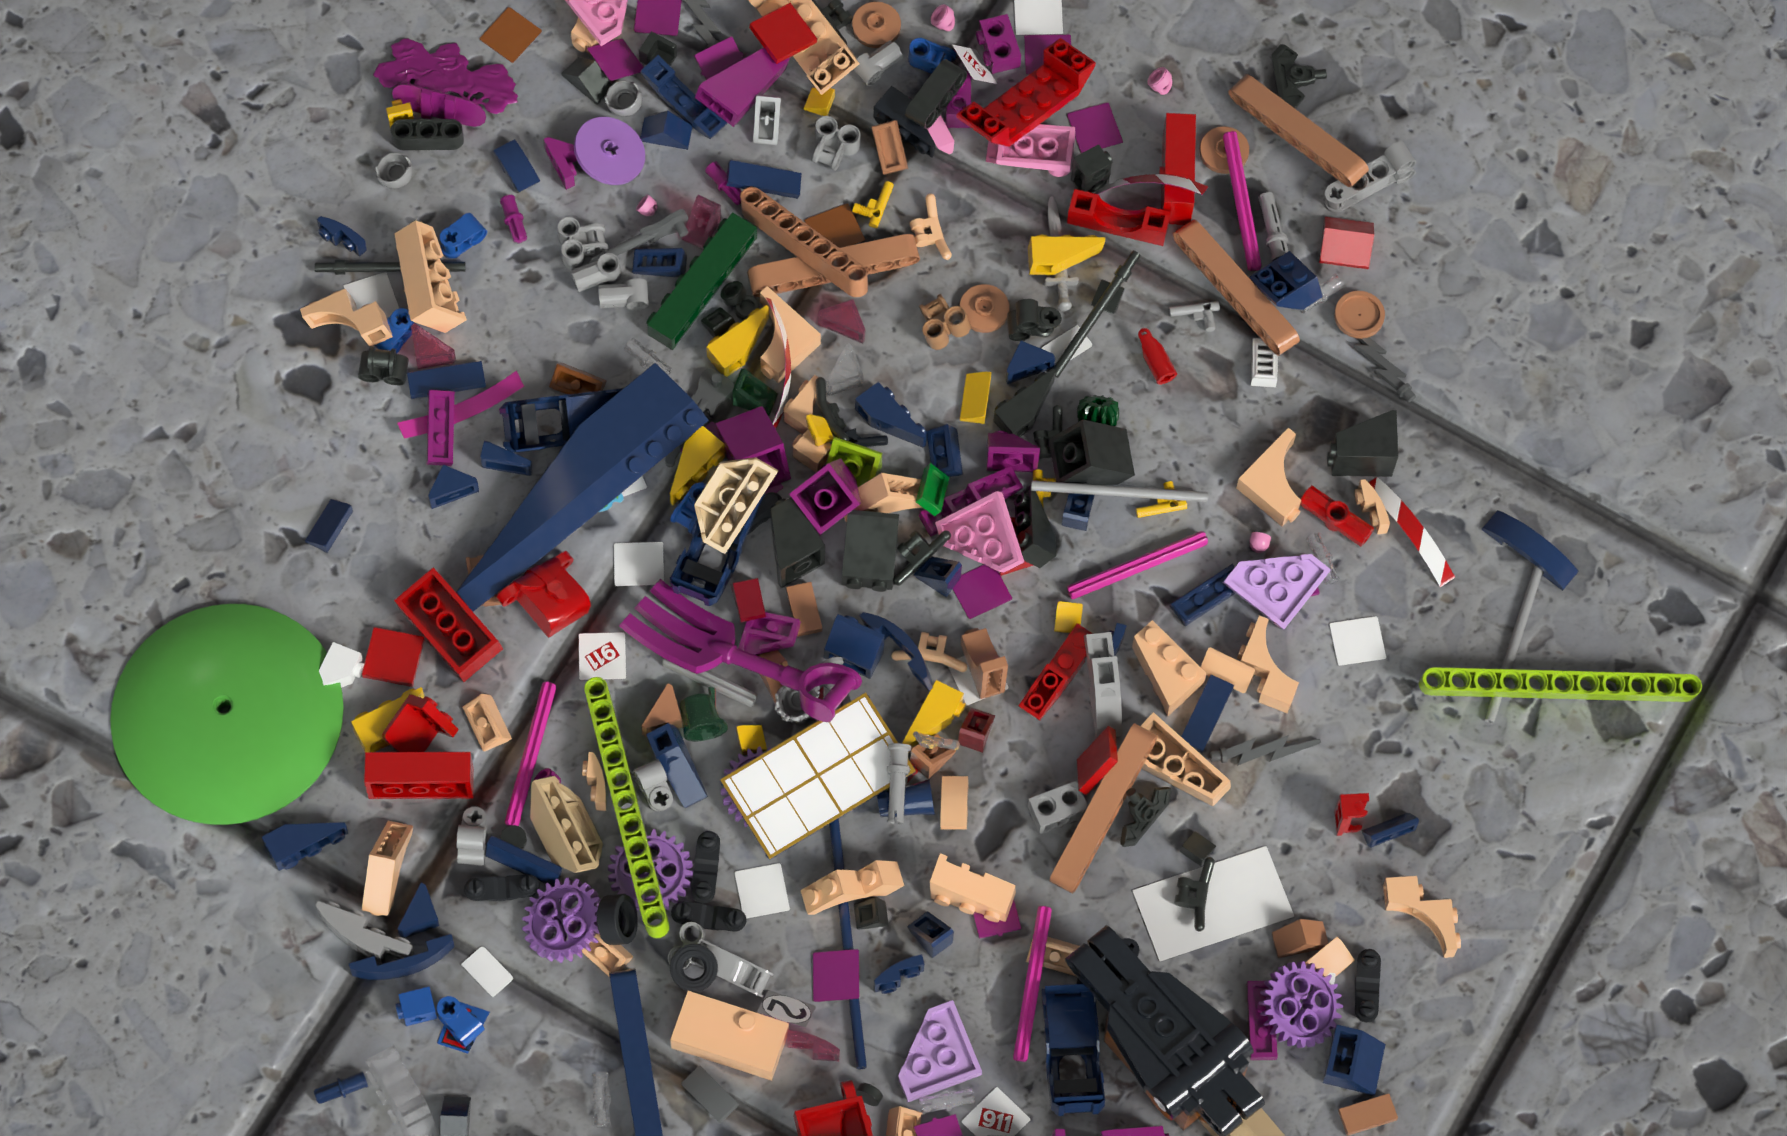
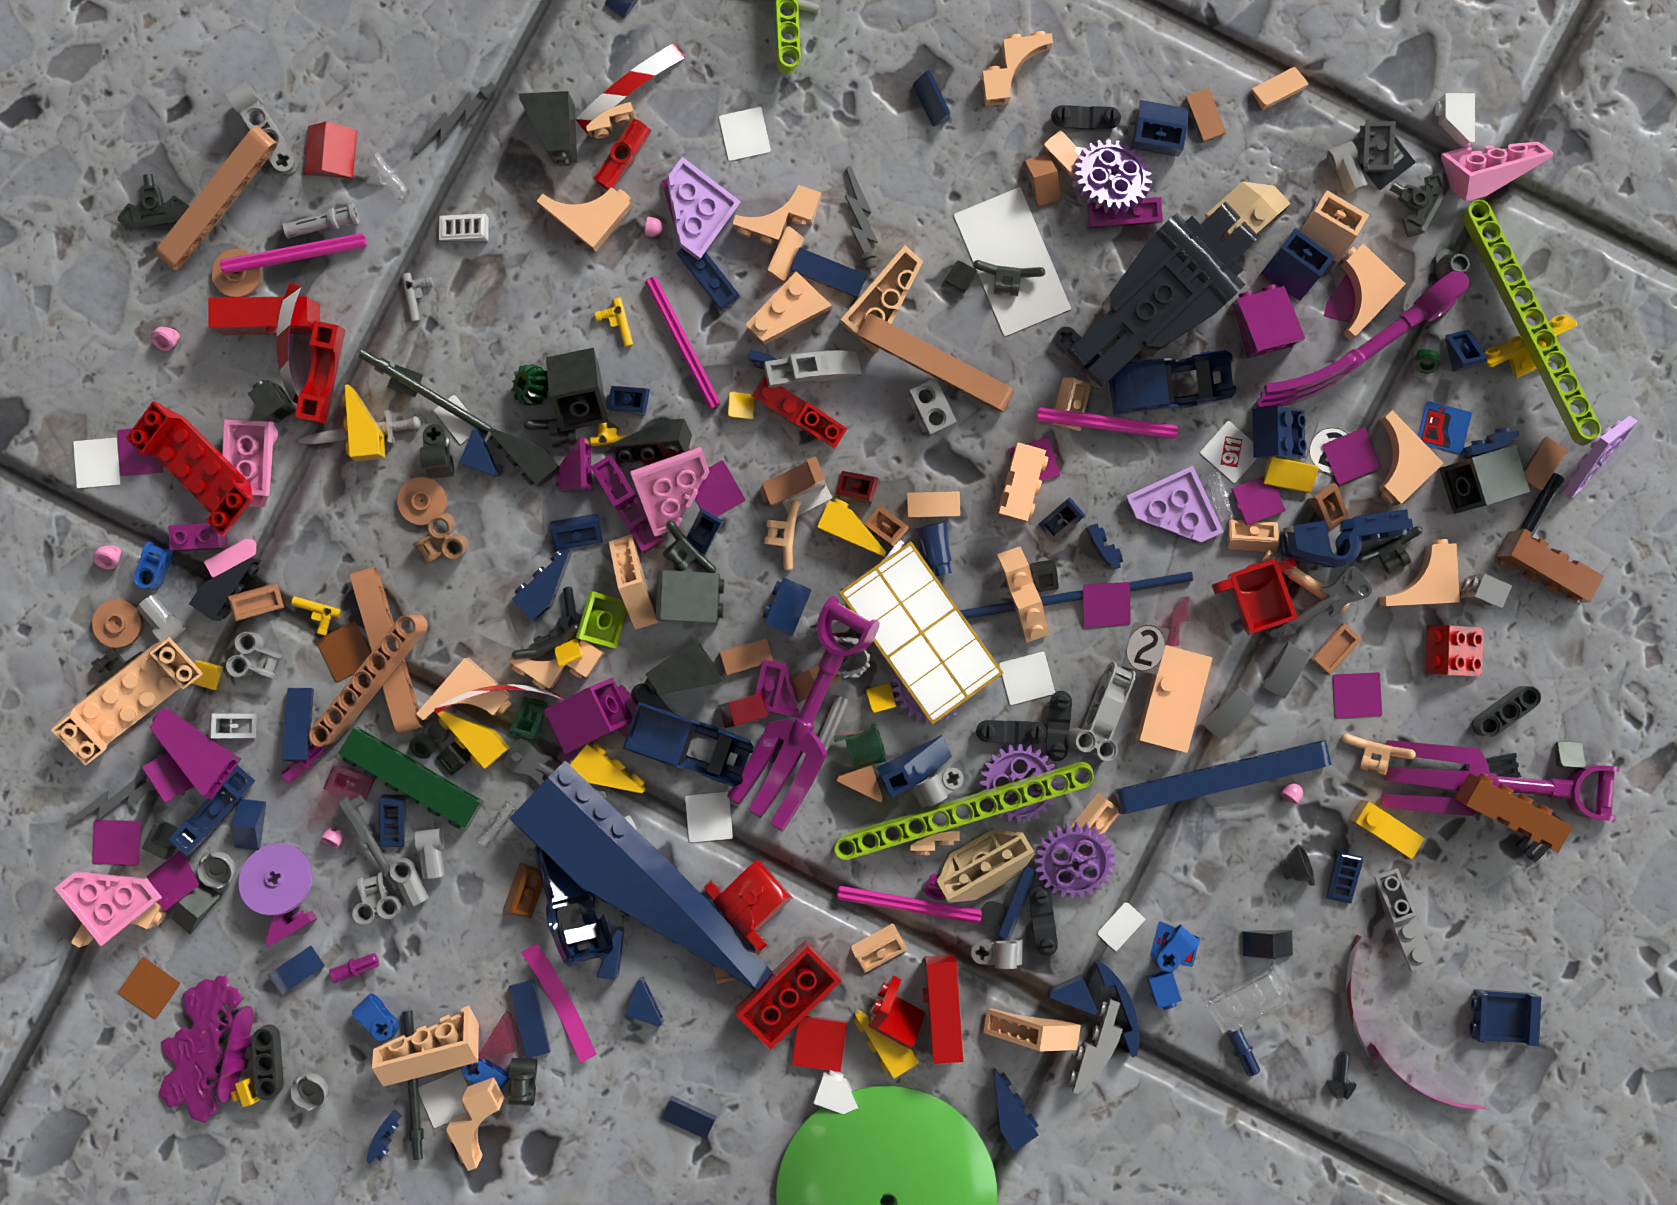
camera: 85 degrees left, 20 degrees up
(440, 428) = (583, 1020): magenta plate -> none
(602, 655) = (805, 845): white sticker -> none
(617, 919) = (1075, 811): black tyre -> none
(685, 510) = (653, 771): blue piece -> none
(710, 967) = (1132, 736): black tyre -> none
(730, 499) = (658, 733): tan wedge -> none
(783, 33) = (137, 715): red tile -> none
(828, 495) = (640, 640): magenta slope -> none
(843, 320) = (445, 635): clear pink slope -> none
(870, 1094) = (1219, 567): pearl dark grey tile -> none
(897, 770) = (914, 557): light grey pin -> none
(917, 664) = (807, 542): dark blue slope -> none
(930, 741) = (880, 531): clear piece -> none
(932, 222) = (333, 556): light nougat piece -> none
(932, 489) = (621, 540): green tile -> none
(936, 94) = (199, 558): pearl dark grey beam -> none
(974, 64) = (159, 522): white sticker -> none
(975, 397) = (517, 504): yellow slope -> none
(1002, 43) = (133, 493): magenta brick -> none
(1095, 127) = (219, 401): magenta sticker -> none
(1097, 760) = (891, 370): red tile -> none
(1119, 491) = (611, 362): light grey piece -> none
(1144, 813) = (934, 327): pearl dark grey piece -> none
(1156, 358) = (466, 331): red piece -> none
(1236, 287) = (388, 256): nougat beam -> none
(1288, 283) = (383, 205): dark blue slope -> none
(1350, 807) = (925, 137): red hinge -> none
(1363, 304) = (398, 133): nougat piece -> none

